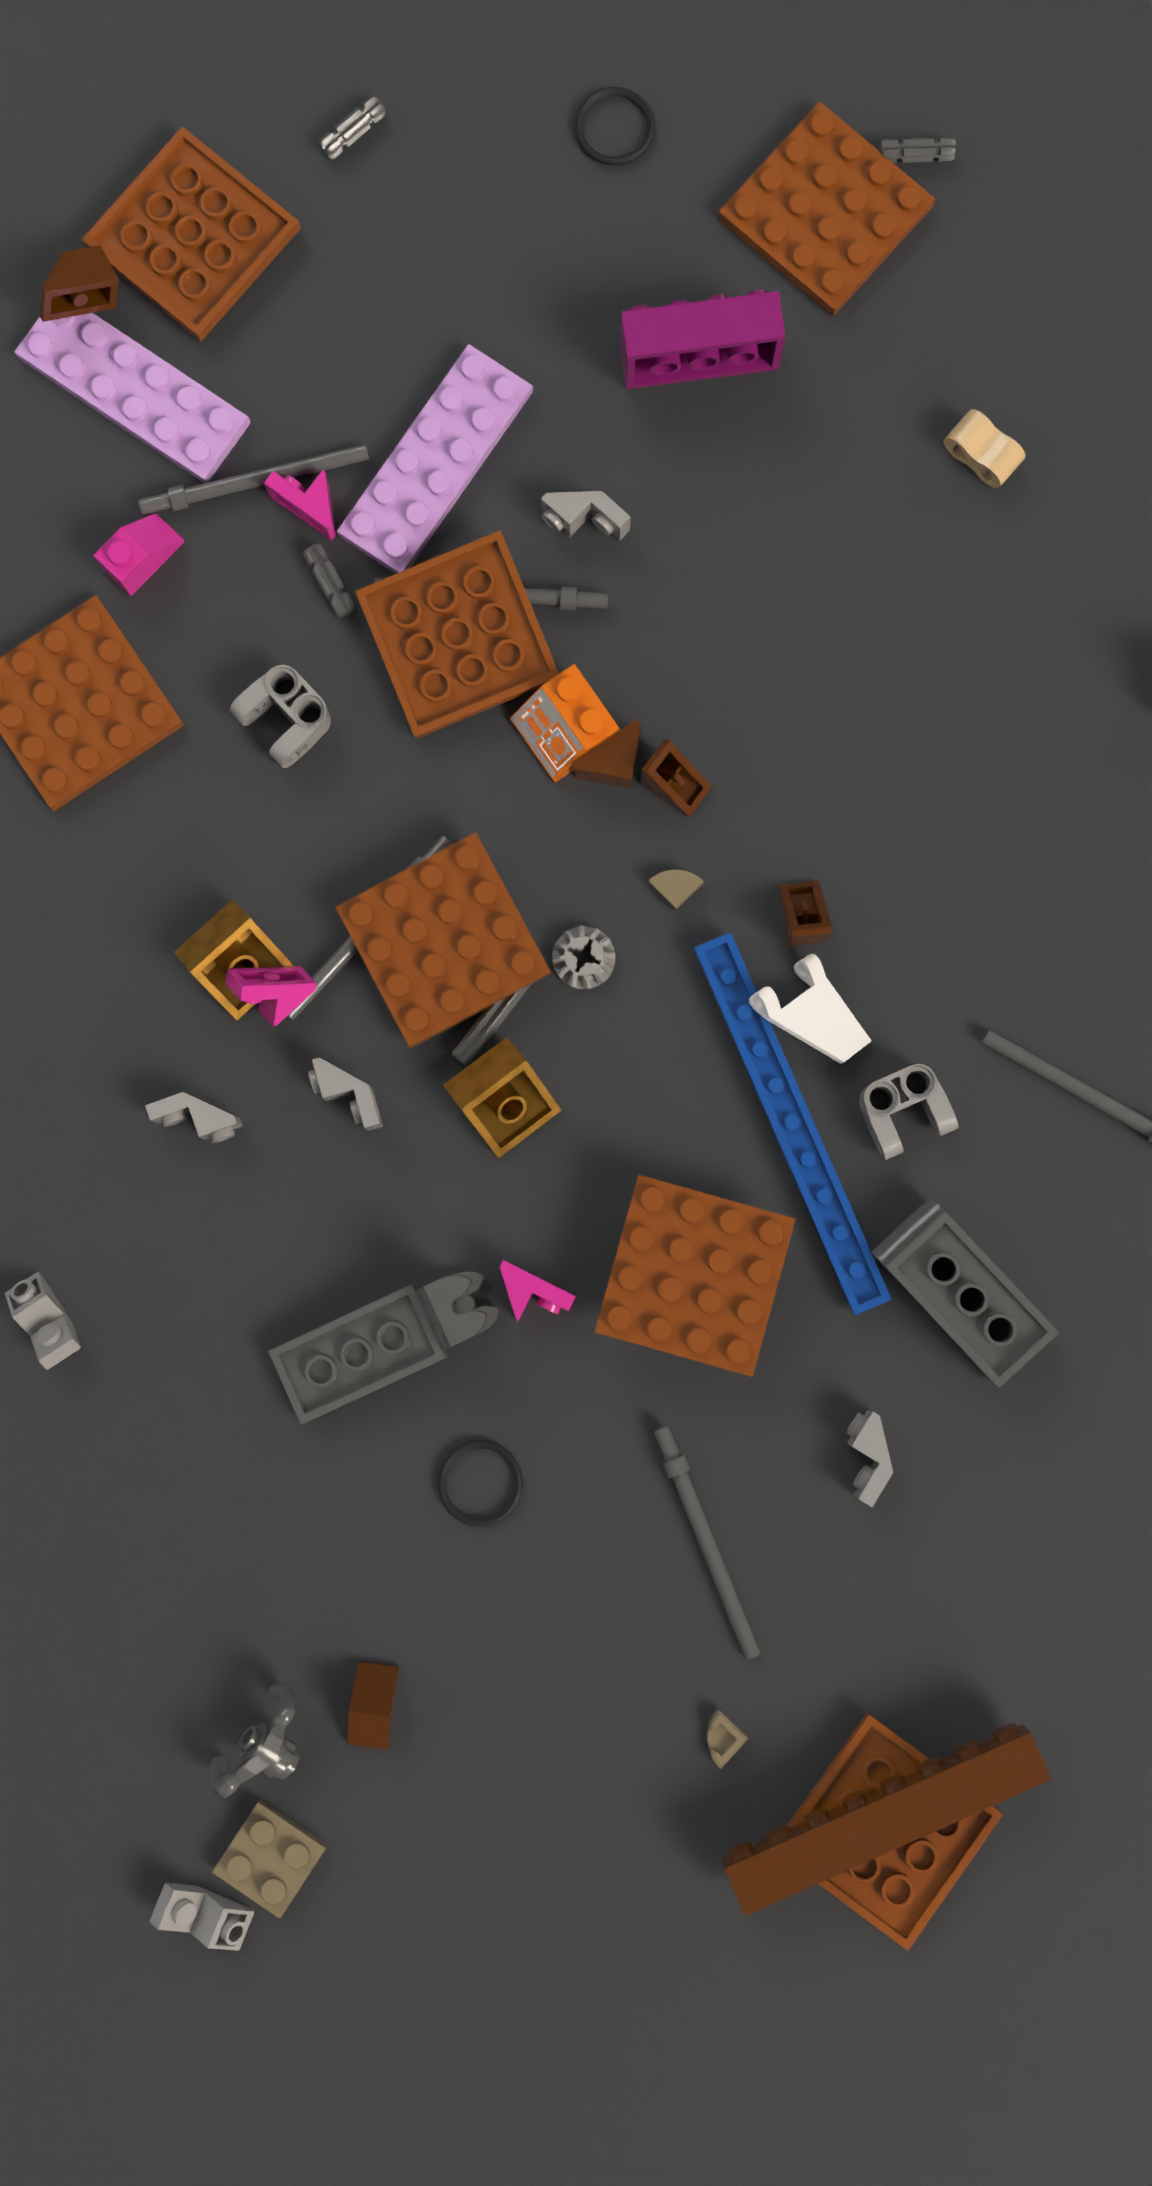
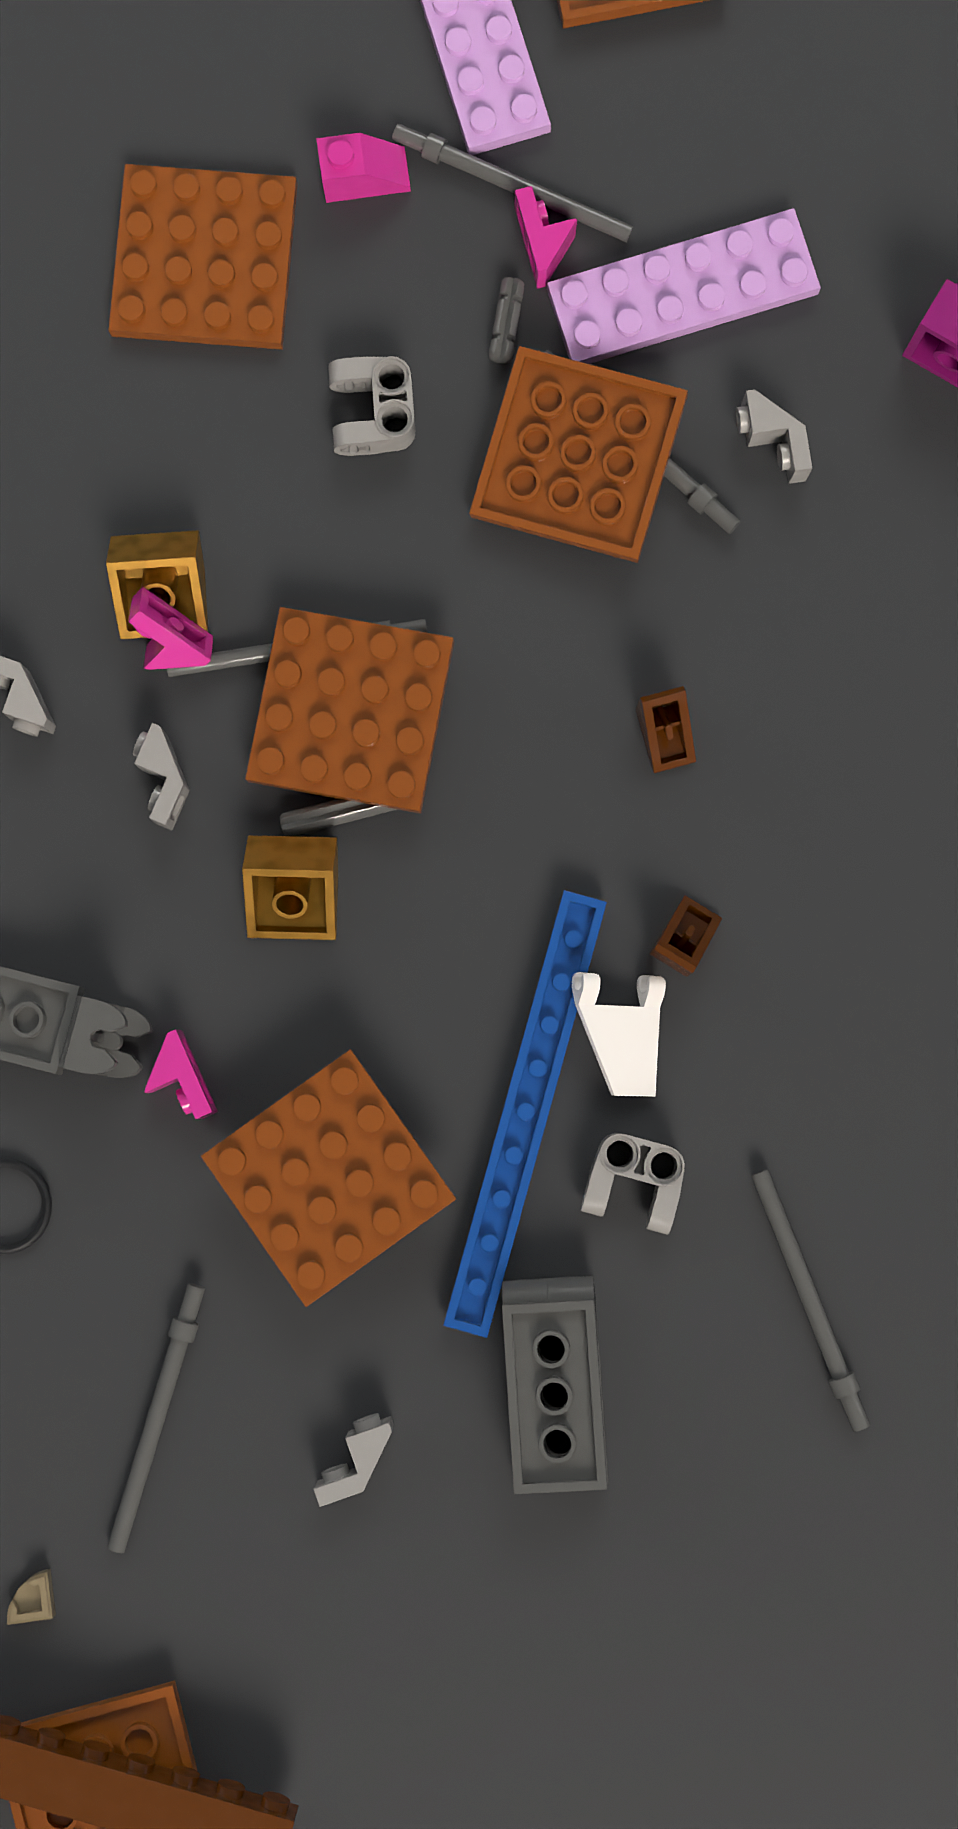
camera: 40 degrees right, 0 degrees up
(563, 722) = (609, 605): orange slope -> none
(590, 974) = (455, 841): light grey gear -> none
(611, 760) = (626, 668): reddish brown slope -> none
(675, 886) = (593, 823): dark tan tile -> none

